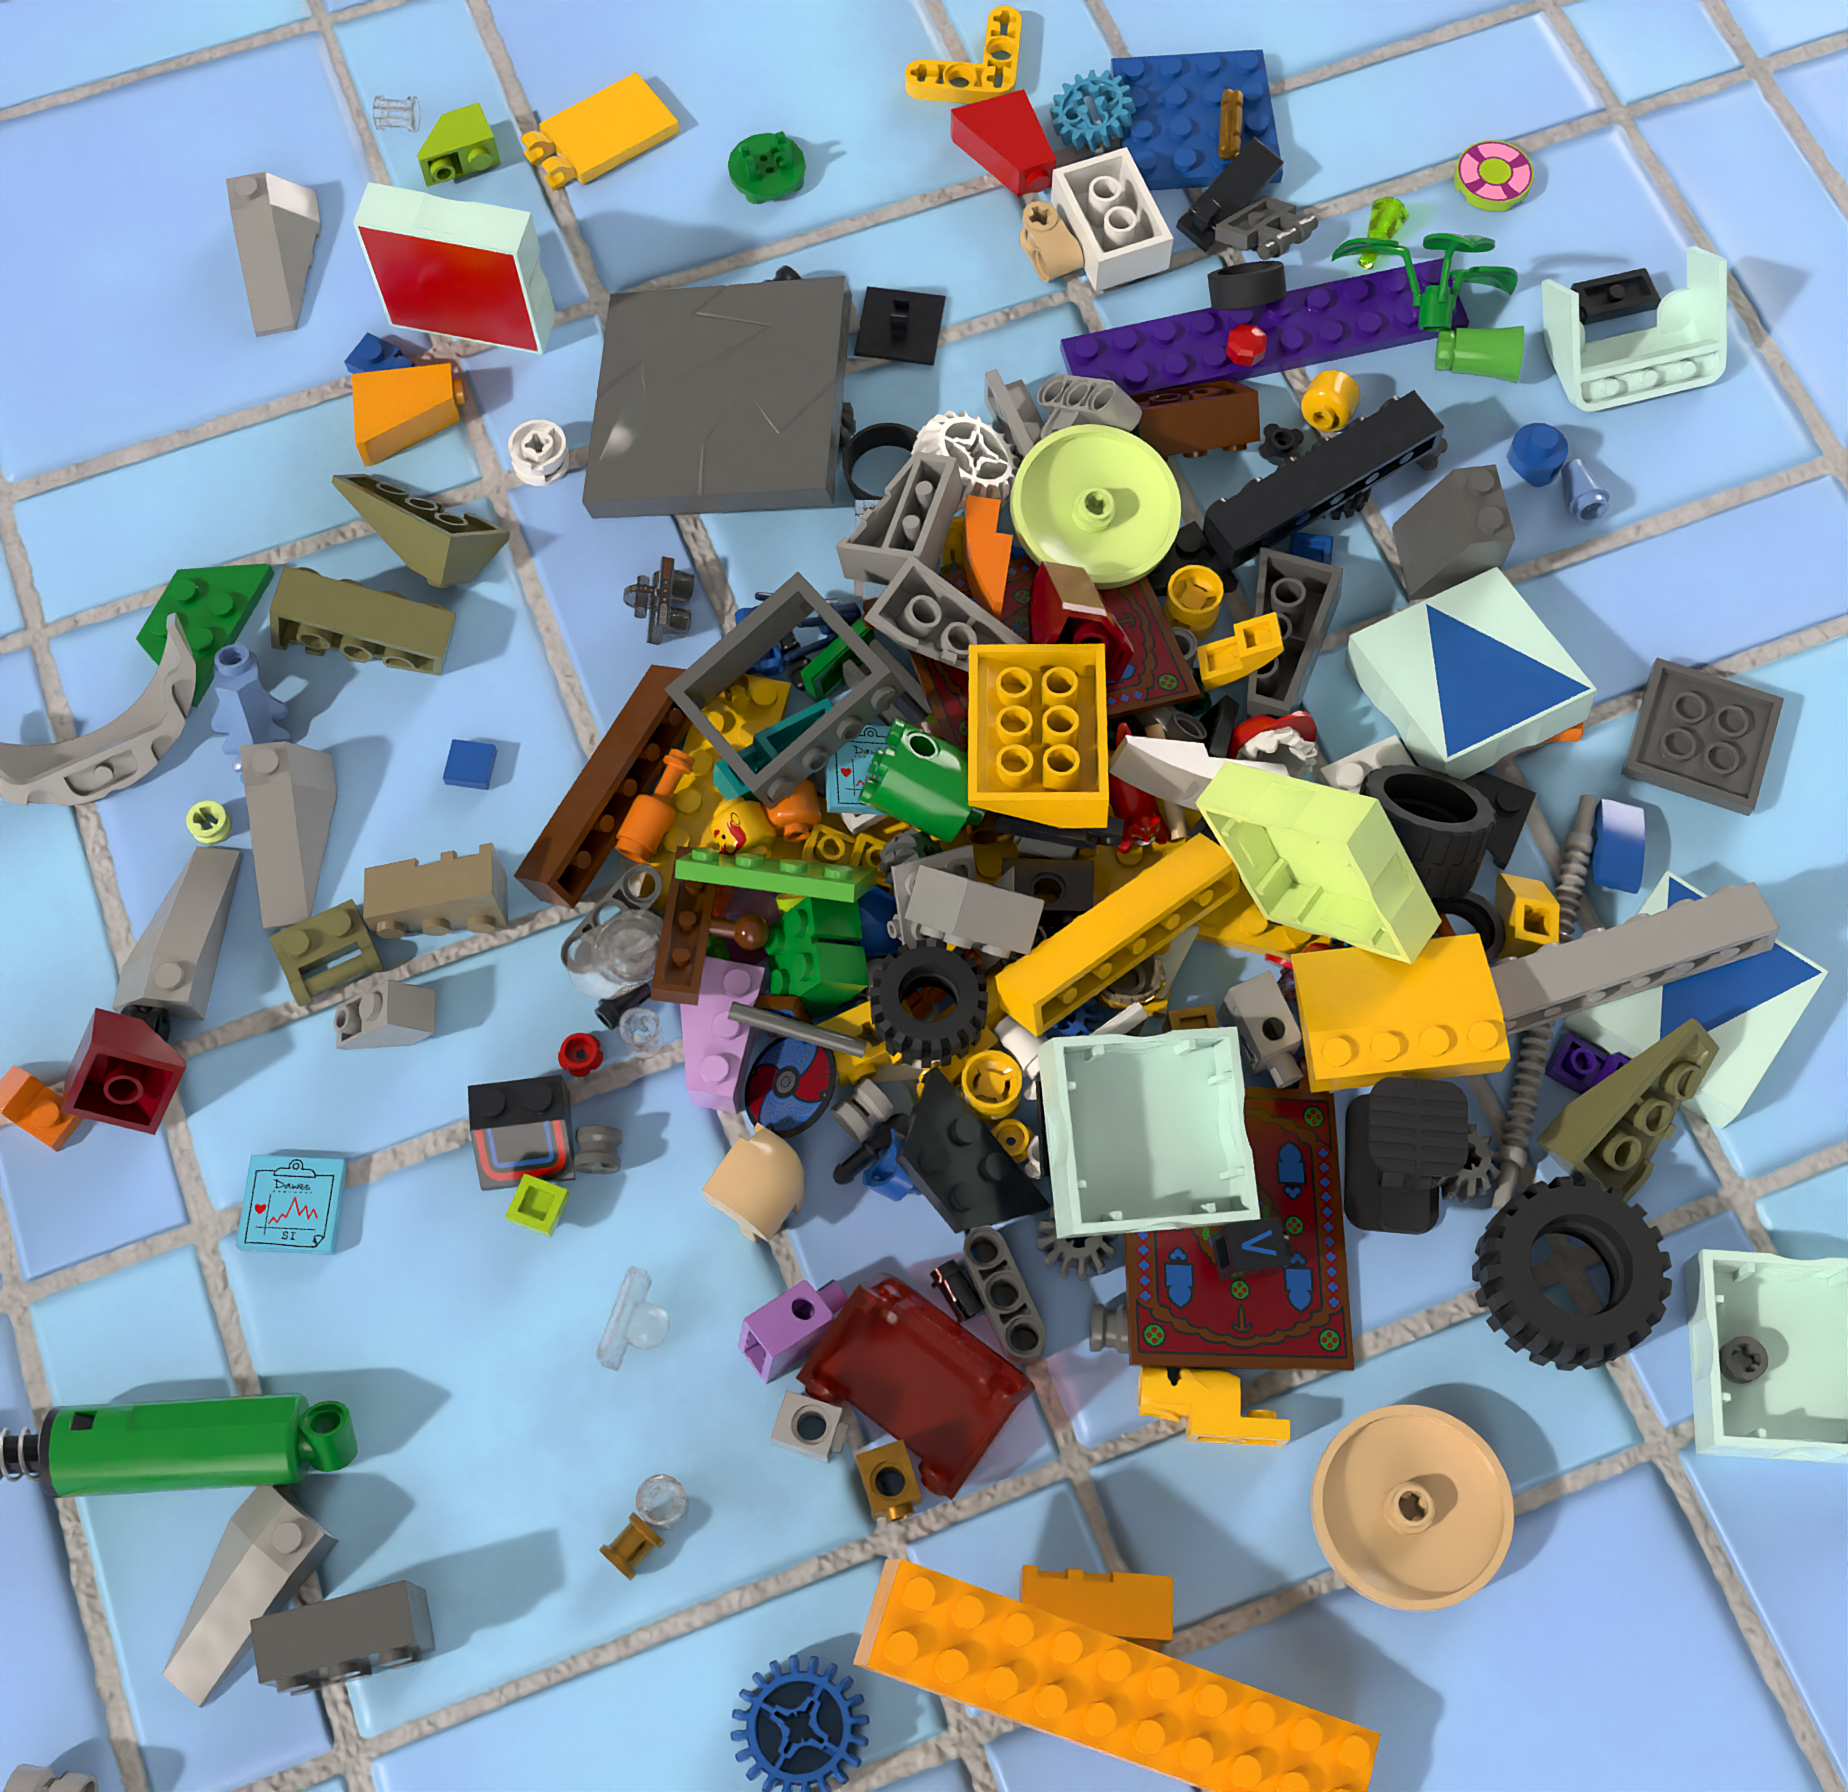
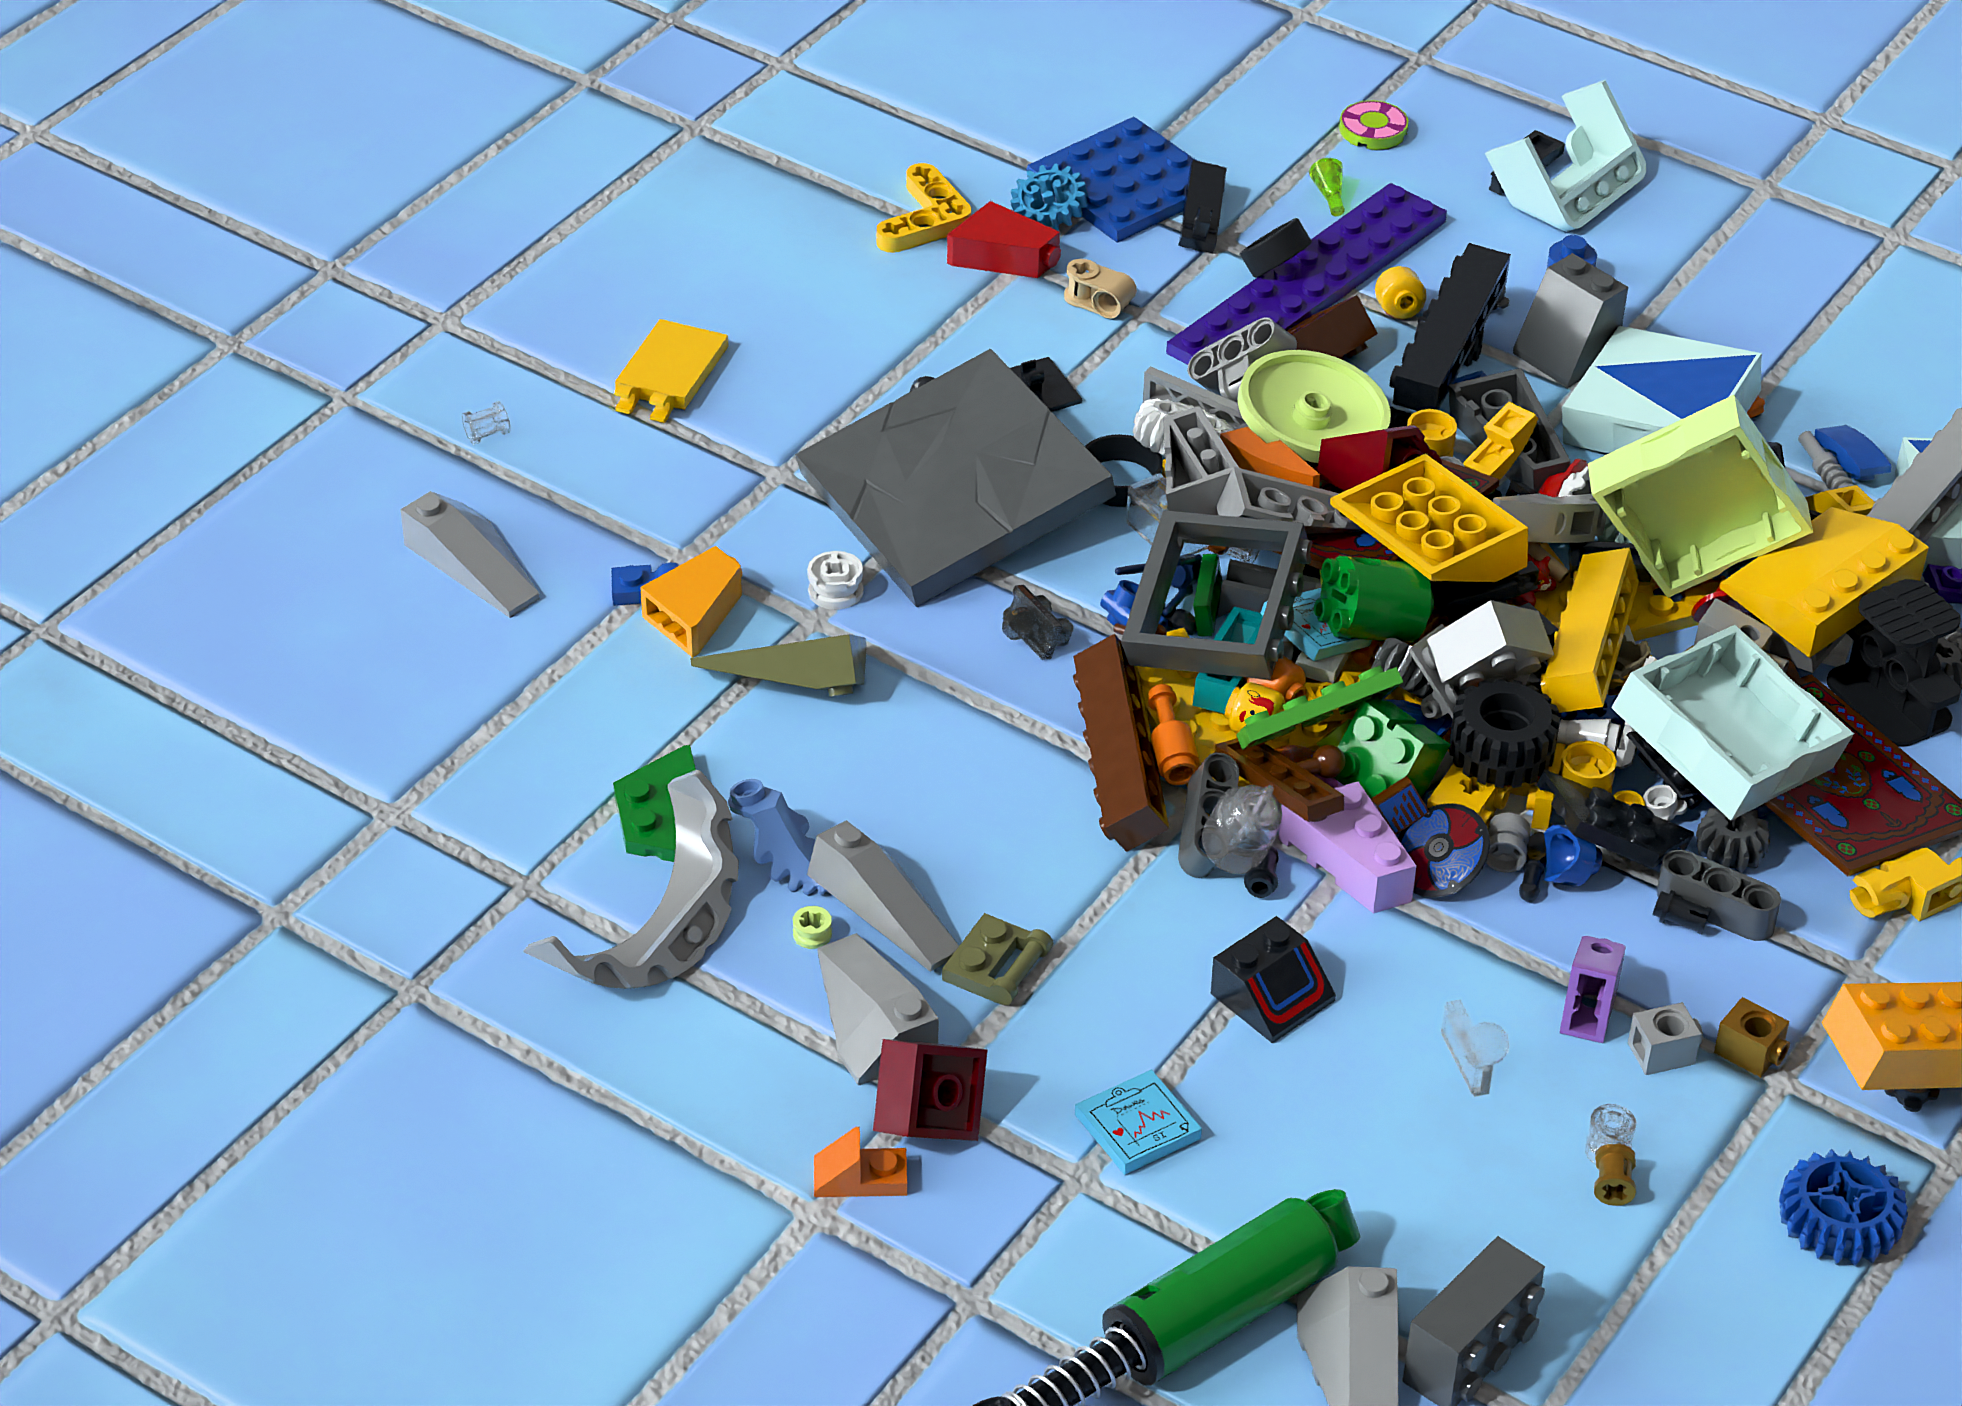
camera: 35 degrees left, 25 degrees down
(359, 622) = (811, 738): olive wedge -> none
(385, 1017) = (1091, 966): light grey slope -> none
(437, 896) = (1060, 869): dark tan wedge -> none
(456, 267) = (681, 469): tile -> none
(458, 146) = (566, 418): lime slope -> none
(470, 764) = (985, 793): blue tile -> none
(537, 1205) = (1334, 1013): lime tile -> none
(580, 1043) = (1259, 912): red plate -> none
(598, 1149) = (1341, 962): dark grey wheel -> none
(645, 1021) = (1297, 884): clear bush -> none
(751, 174) = (827, 334): green plate -> none
(758, 1184) = (1487, 905): tan brick -> none
(797, 1029) = (1423, 799): dark grey bar -> none
(918, 1379) = (1716, 964): clear red windscreen -> none
(1108, 1328) = (1807, 874): dark grey wheel -> none
(1112, 218) = (1140, 245): white brick -> none
(1230, 124) = (1164, 162): pearl gold axle -> none
(1246, 345) = (1311, 282): red tile -> none
(1251, 1249) = (1858, 768): black brick -> none
(1267, 224) = (1243, 212): dark grey plate -> none
(1278, 453) = (1390, 337): black plate -> none
(1437, 301) = (1419, 190): green plant -> none
(1481, 352) = (1477, 220): bright green plant -> none
(1584, 493) = (1627, 270): medium blue cone -> none
(1702, 736) = (1842, 369): dark grey plate -> none

